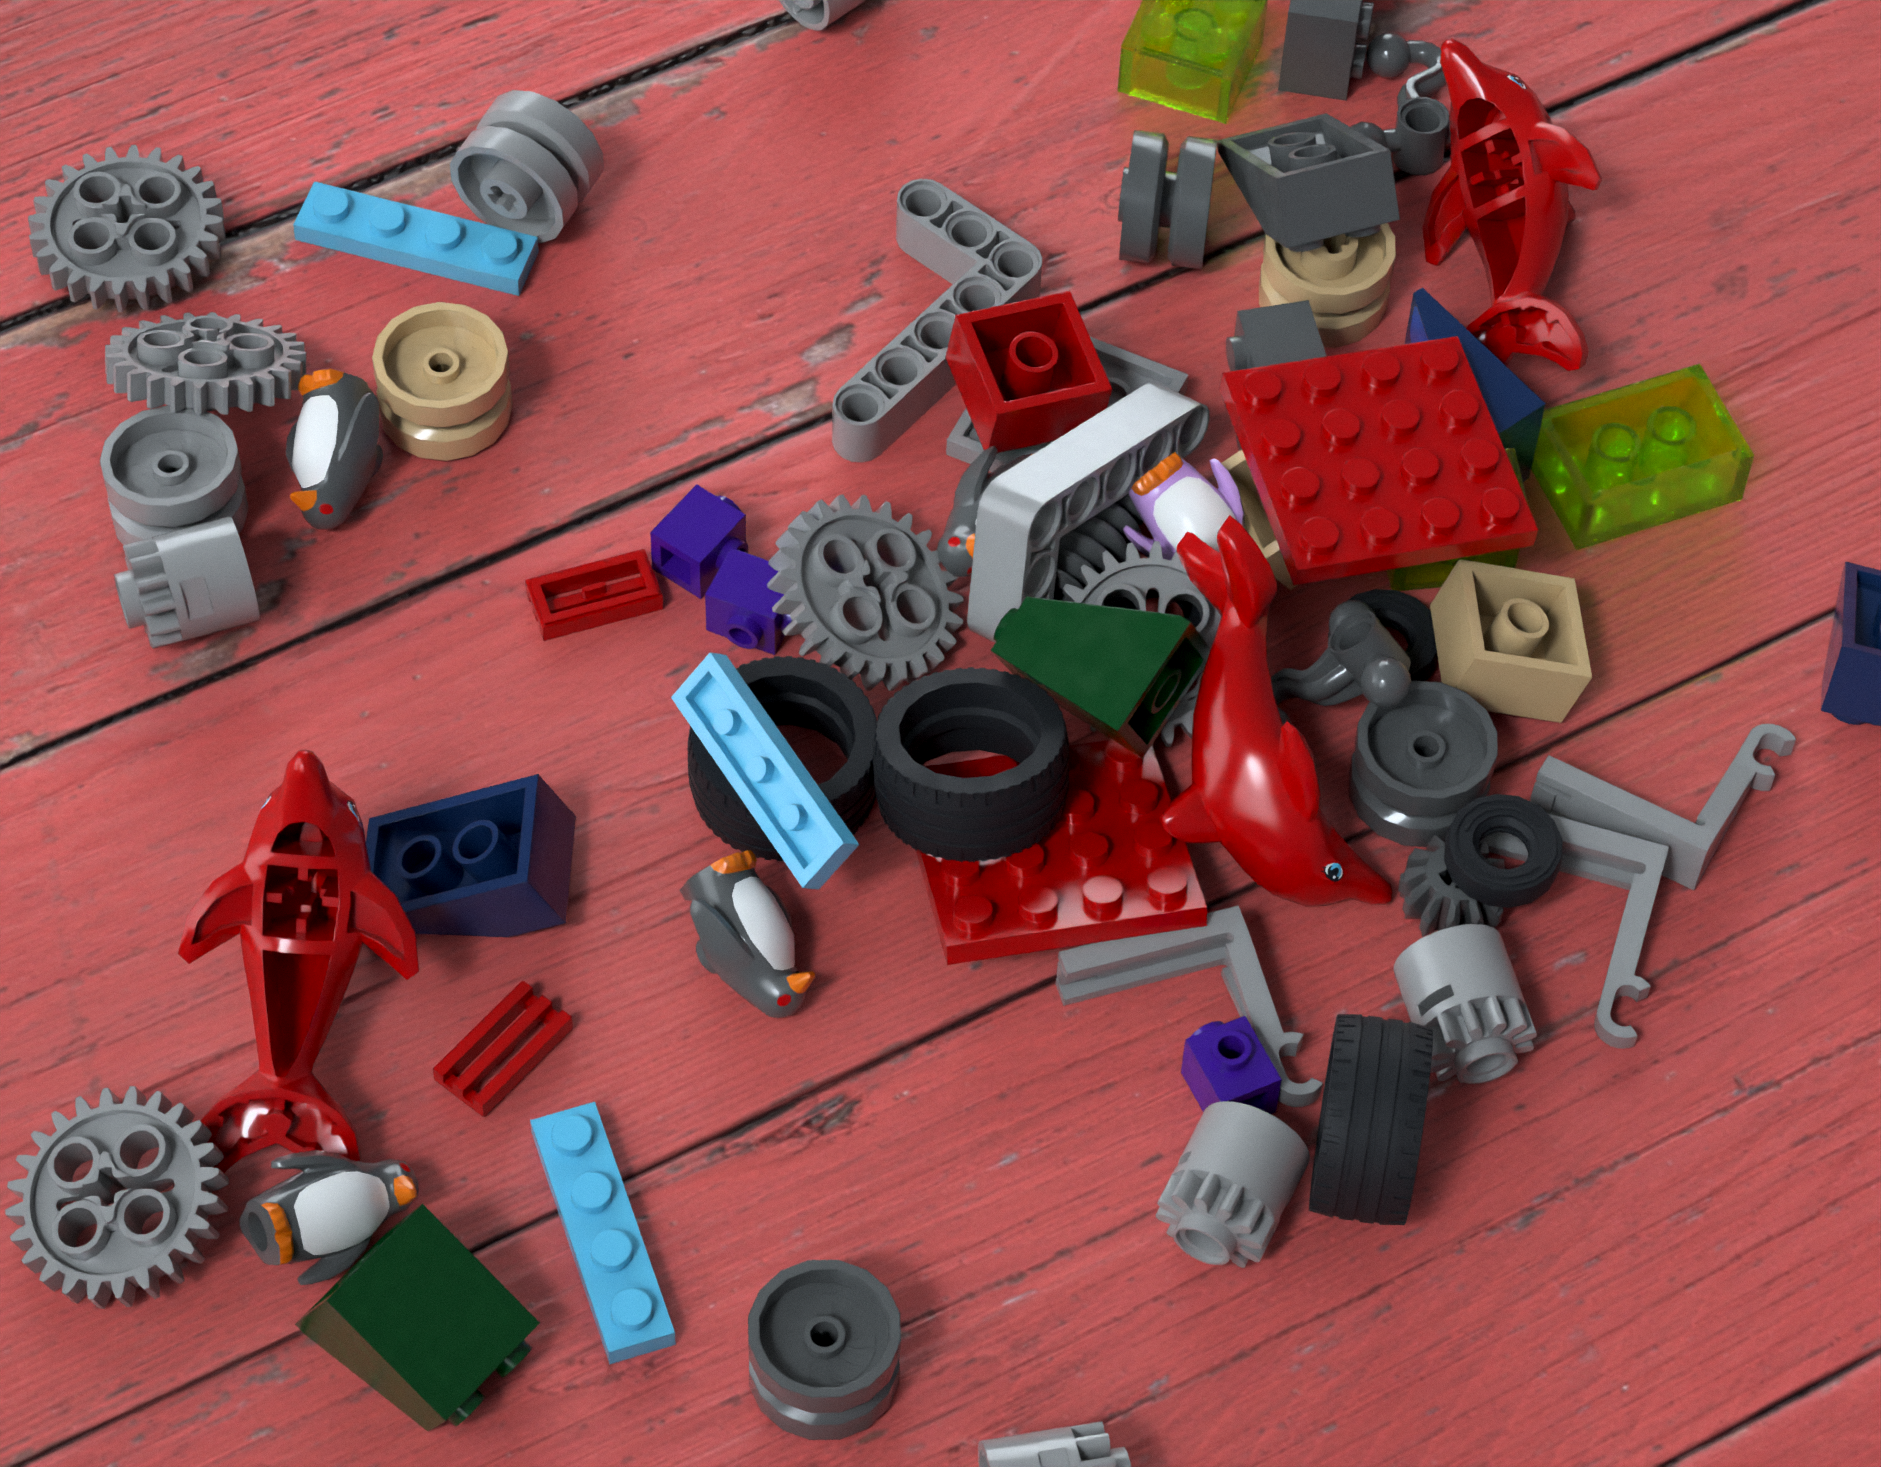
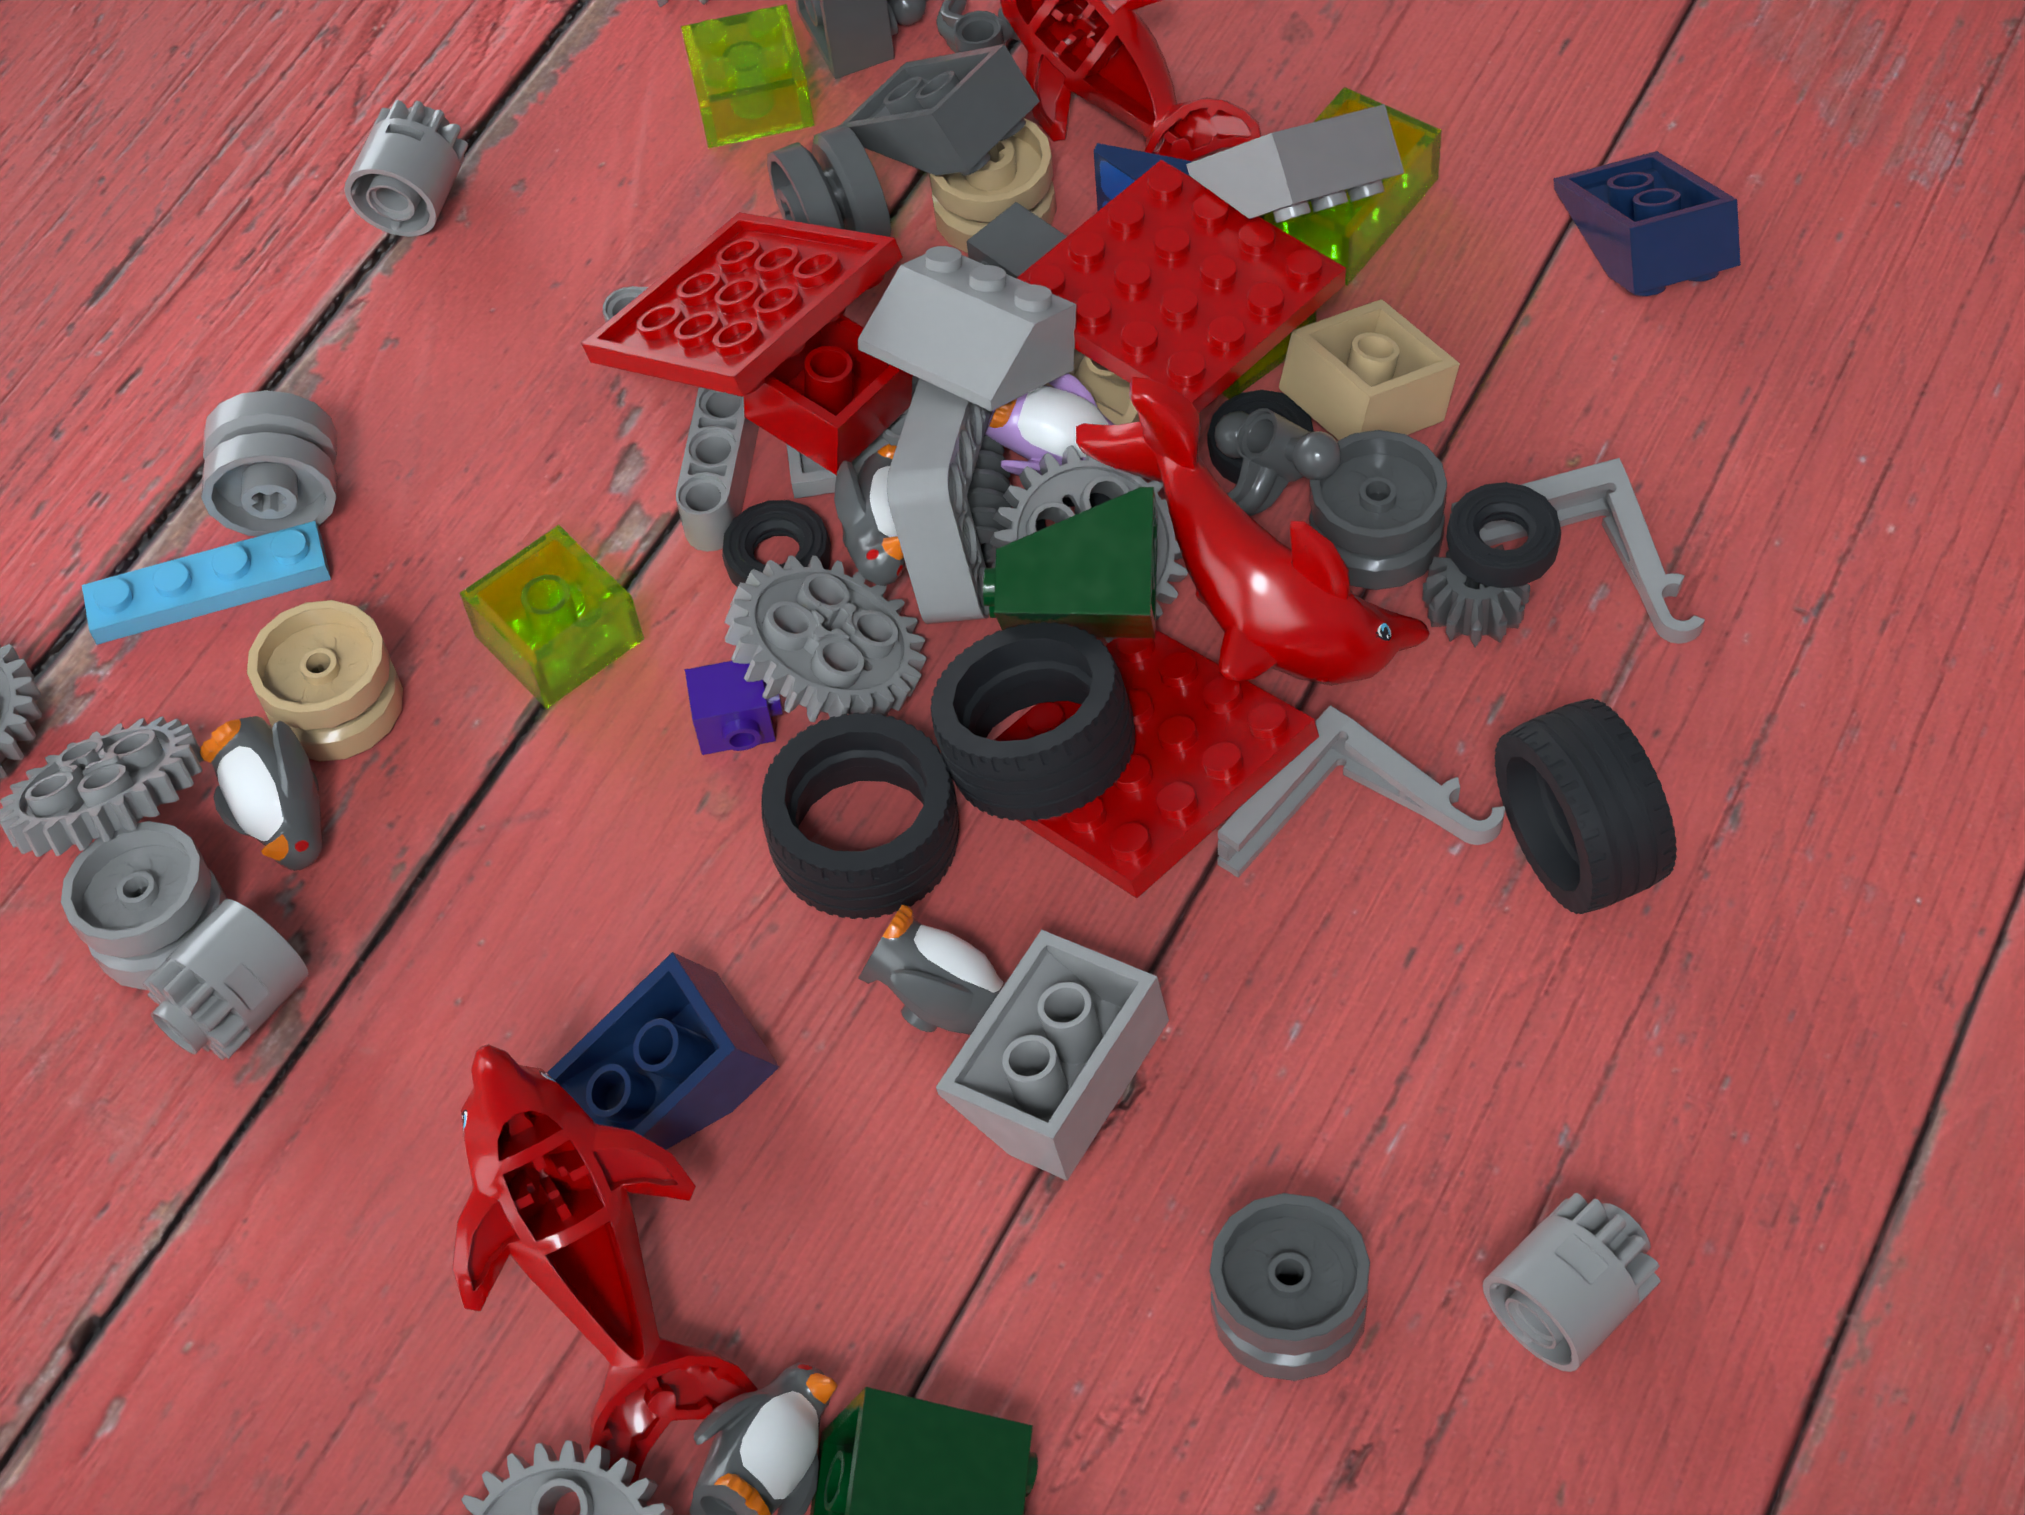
camera: 25 degrees left, 0 degrees up
(487, 1030) = (808, 1158): red tile -> none
(597, 602) = (593, 788): red tile -> none
(602, 1233) = (1012, 1312): medium azure plate -> none
(661, 434) = (552, 616): none -> clear neon green brick
(696, 539) = (646, 684): dark purple brick -> none
(764, 771) = (872, 828): medium azure plate -> none
(787, 1048) = (1055, 1052): none -> light grey slope
(904, 460) = (771, 520): none -> black tyre
(1003, 254) = (742, 302): none -> red plate
(1167, 393) = (971, 328): none -> light grey slope
(1230, 1065) = (1424, 845): dark purple brick -> none
(1232, 1184) = (1506, 931): light grey gear -> none
(1470, 998) = (1563, 659): light grey gear -> none
(1575, 418) = (1305, 166): none -> light grey slope
(1589, 800) = (1542, 457): light grey hinge -> none

